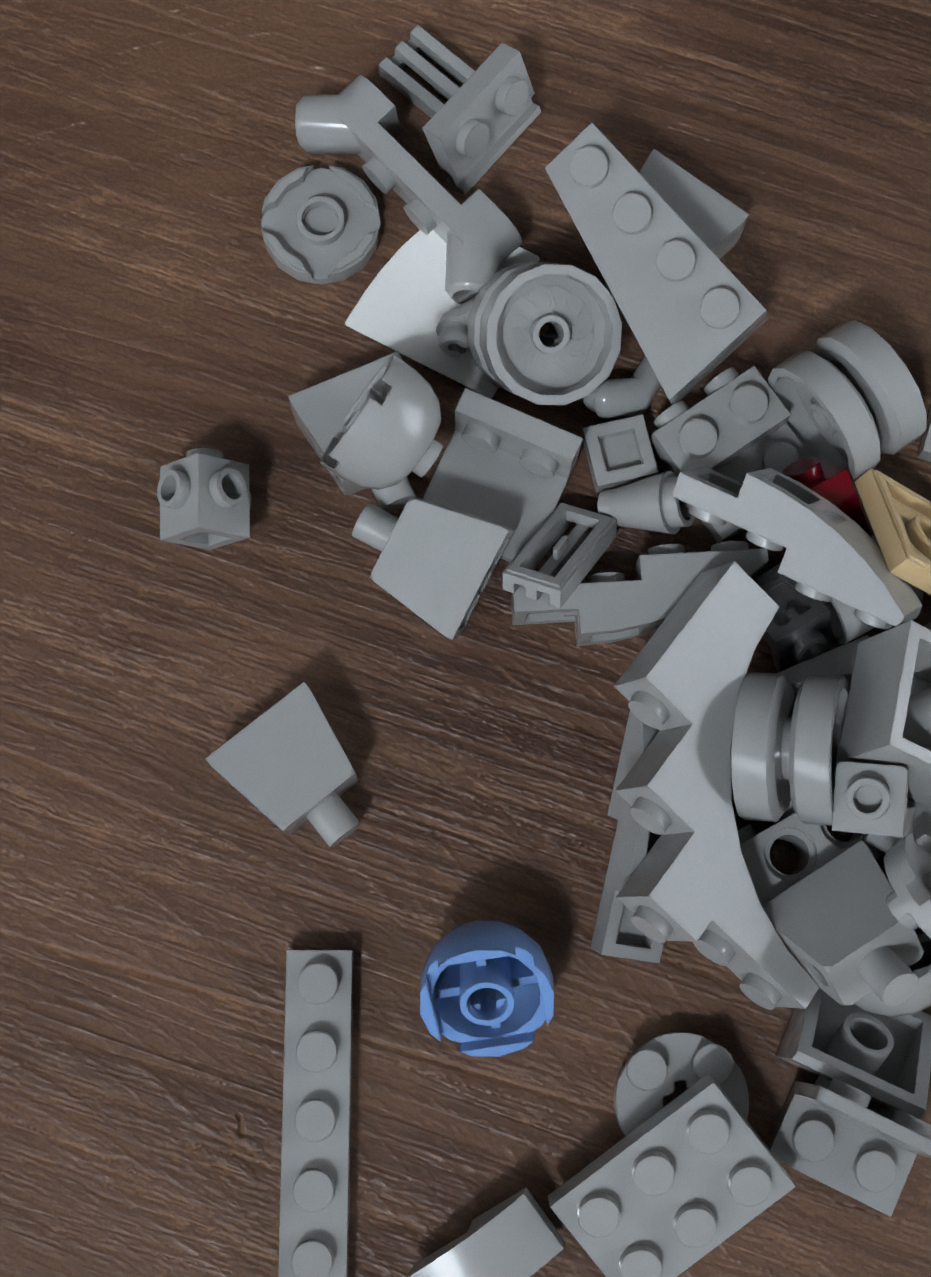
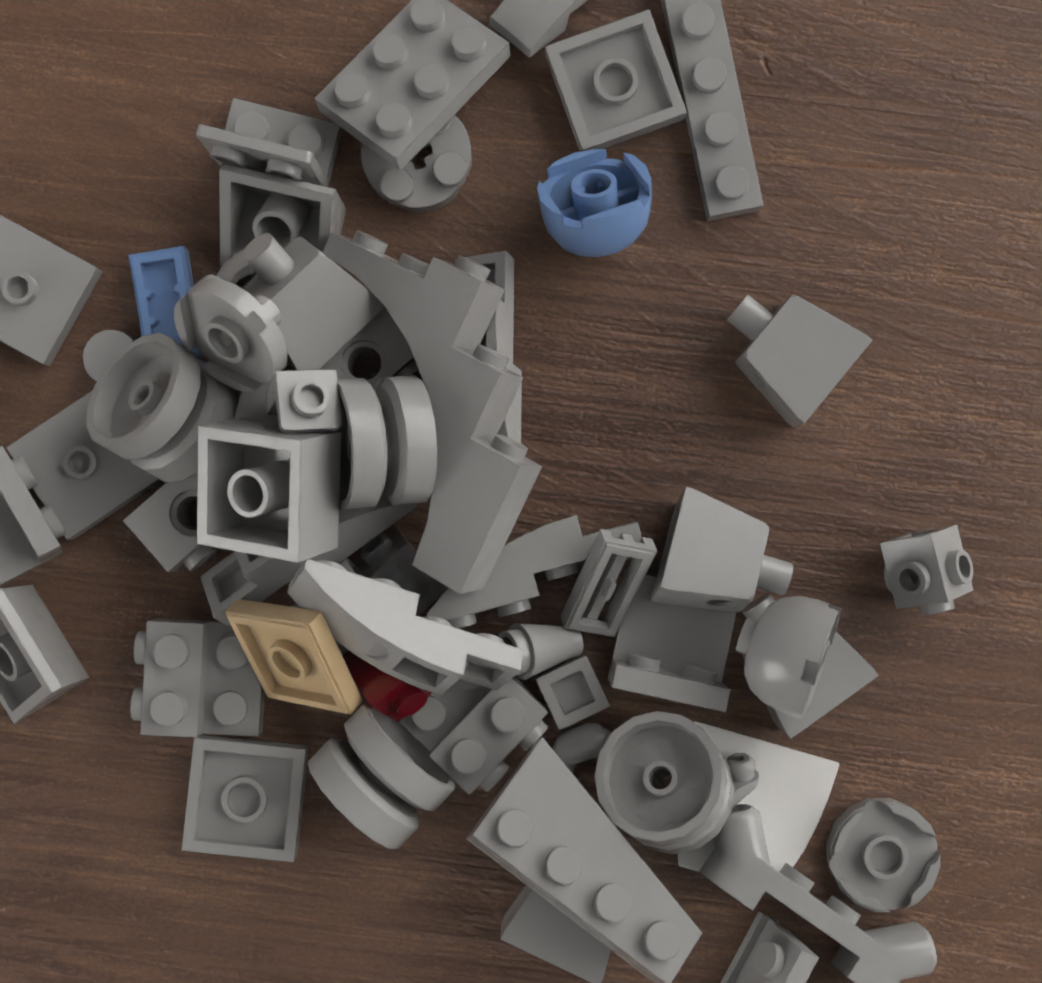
camera: 170 degrees right, 10 degrees up
(428, 1137) = (615, 82): none -> light grey plate

